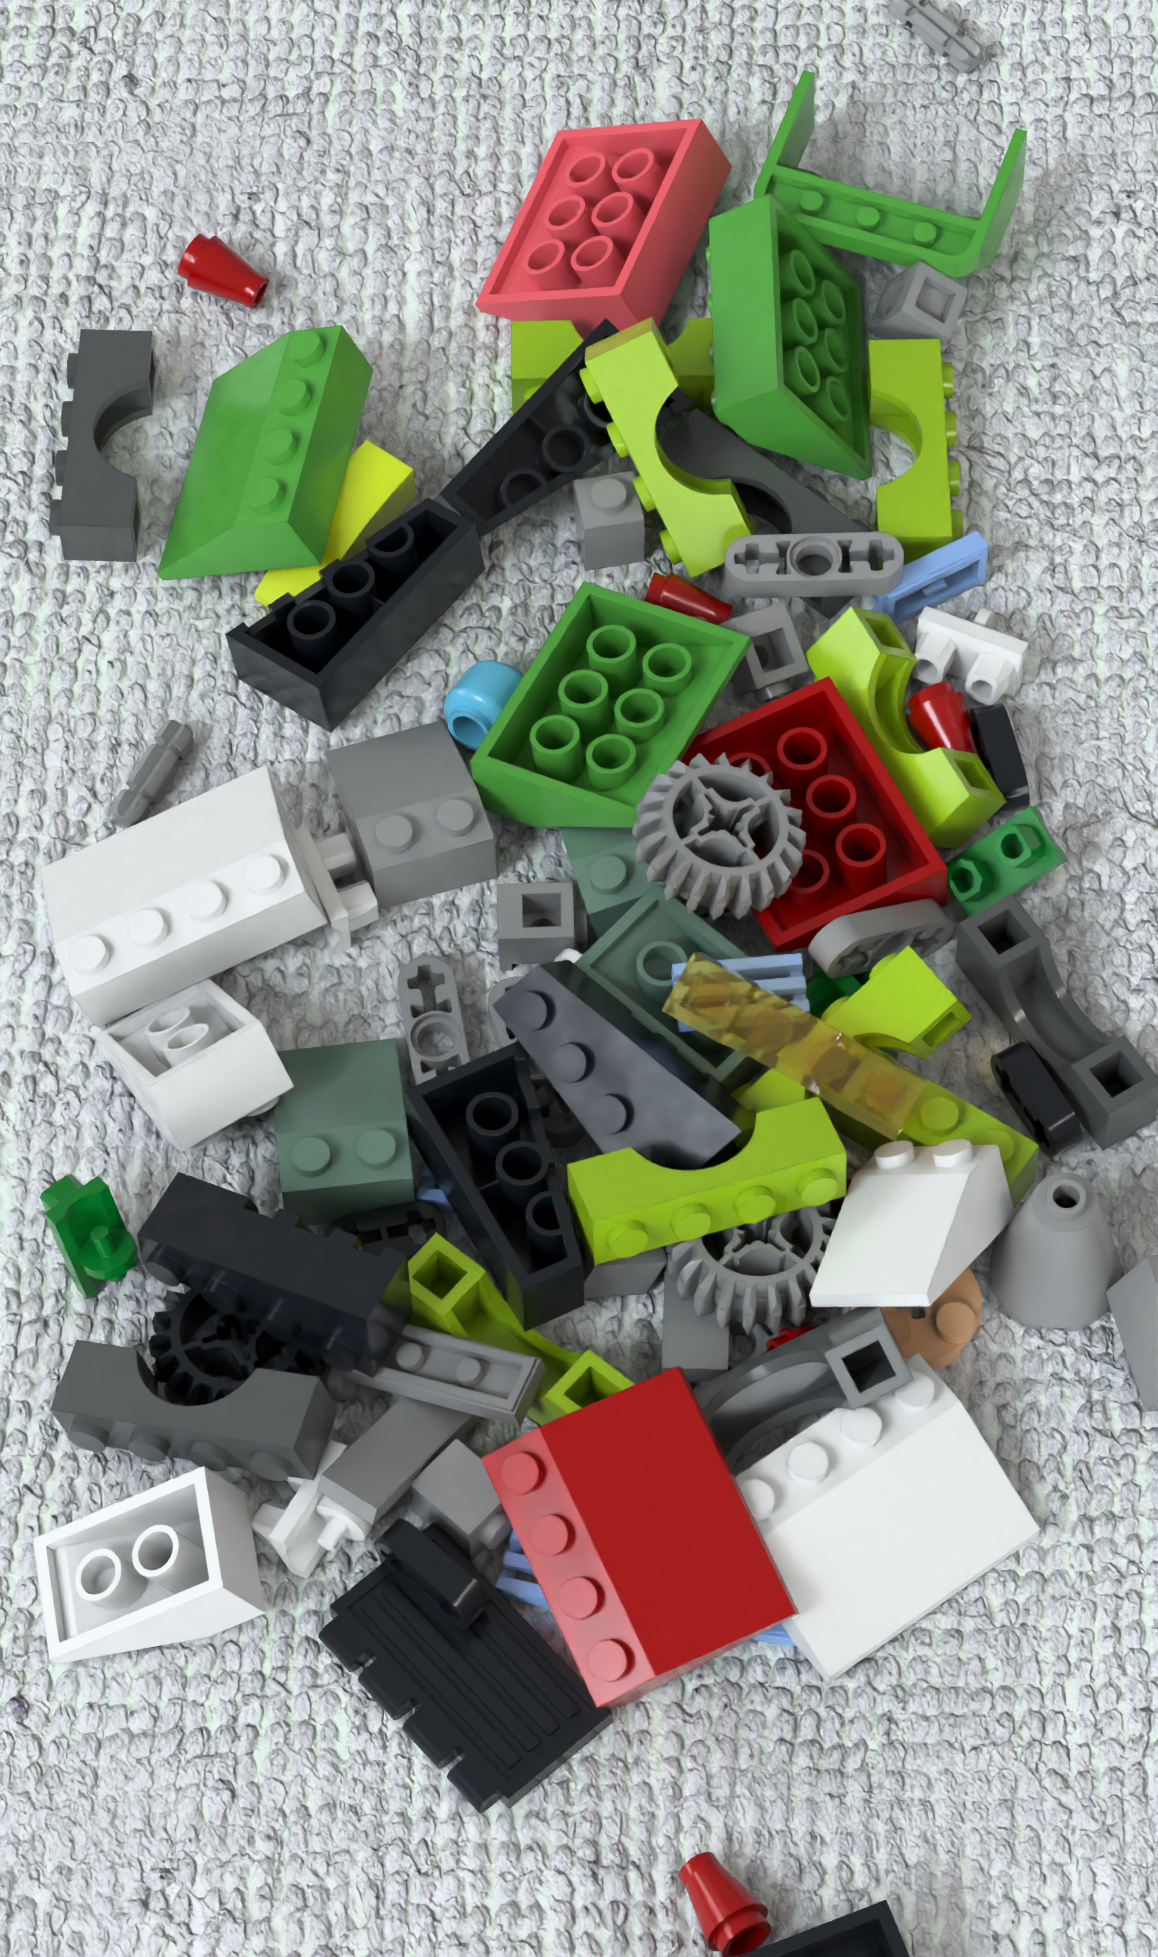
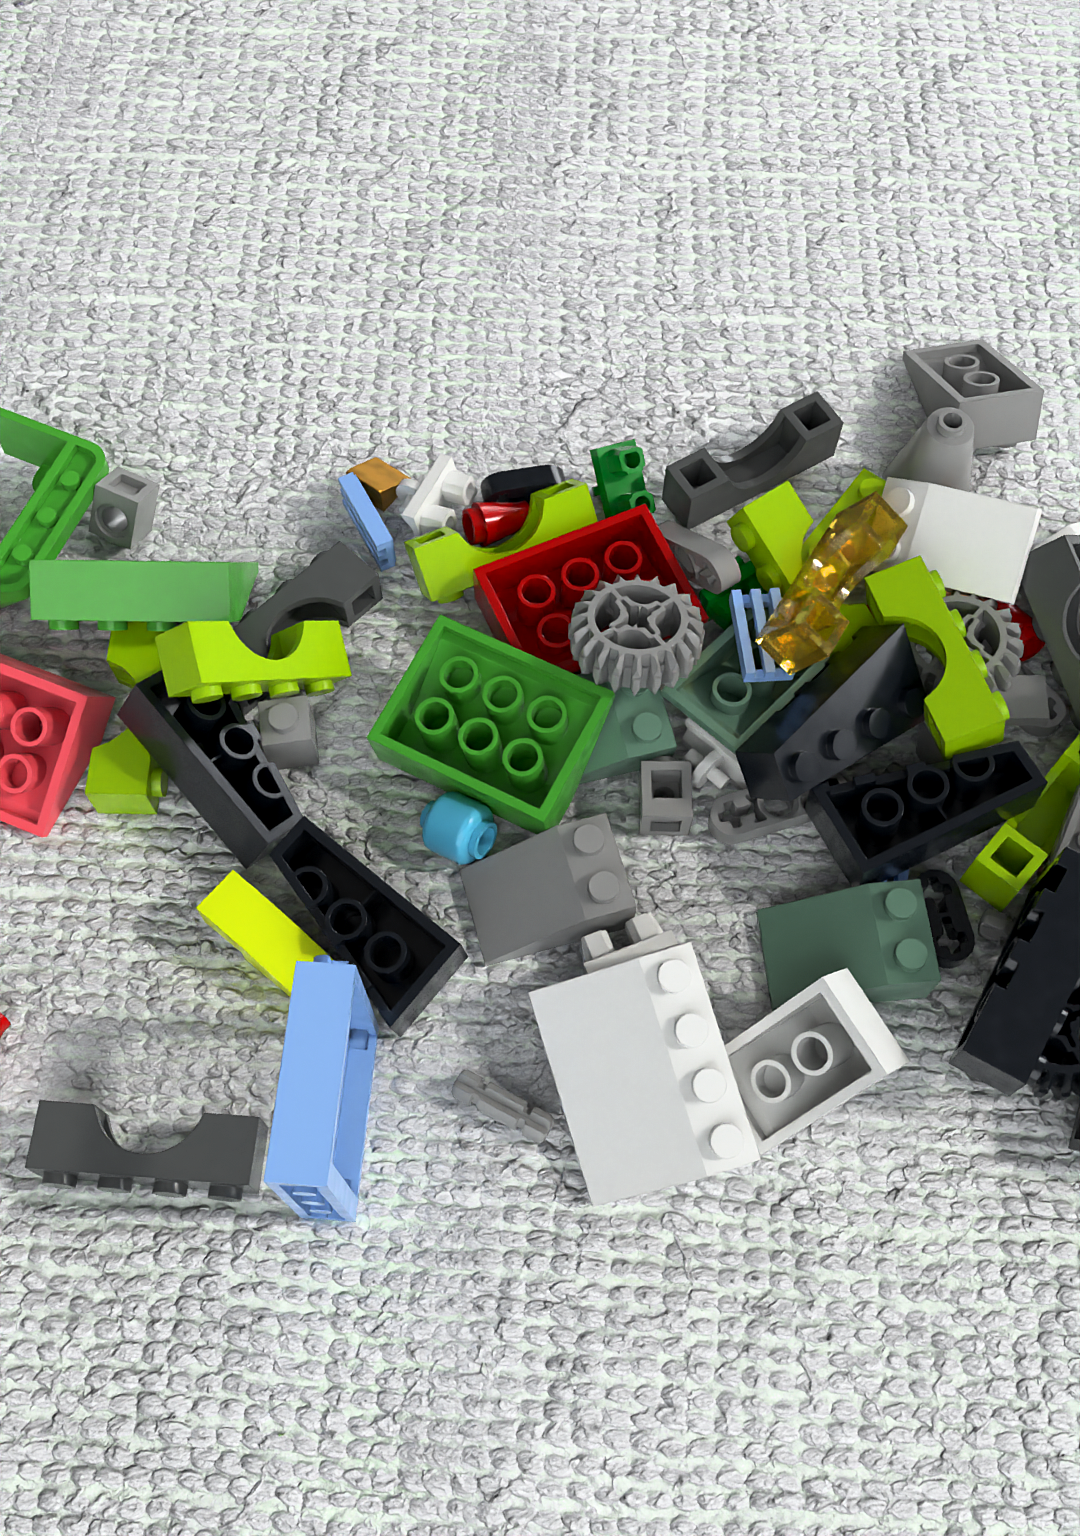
camera: 90 degrees left, 5 degrees up
(89, 1232) = (999, 1128): green hips -> none
(134, 494) = (323, 1092): none -> light blue window
(270, 458) = (189, 997): bright green slope -> none
(418, 1023) = (797, 858): light grey beam -> none
(684, 597) = (371, 688): red cone -> none
(771, 547) = (374, 595): light grey beam -> none
(773, 652) = (410, 625): light grey brick -> none
(907, 399) = (198, 523): lime arch -> none
(1007, 589) = (378, 481): none -> pearl gold slope
(1036, 1099) = (811, 479): black beam -> none

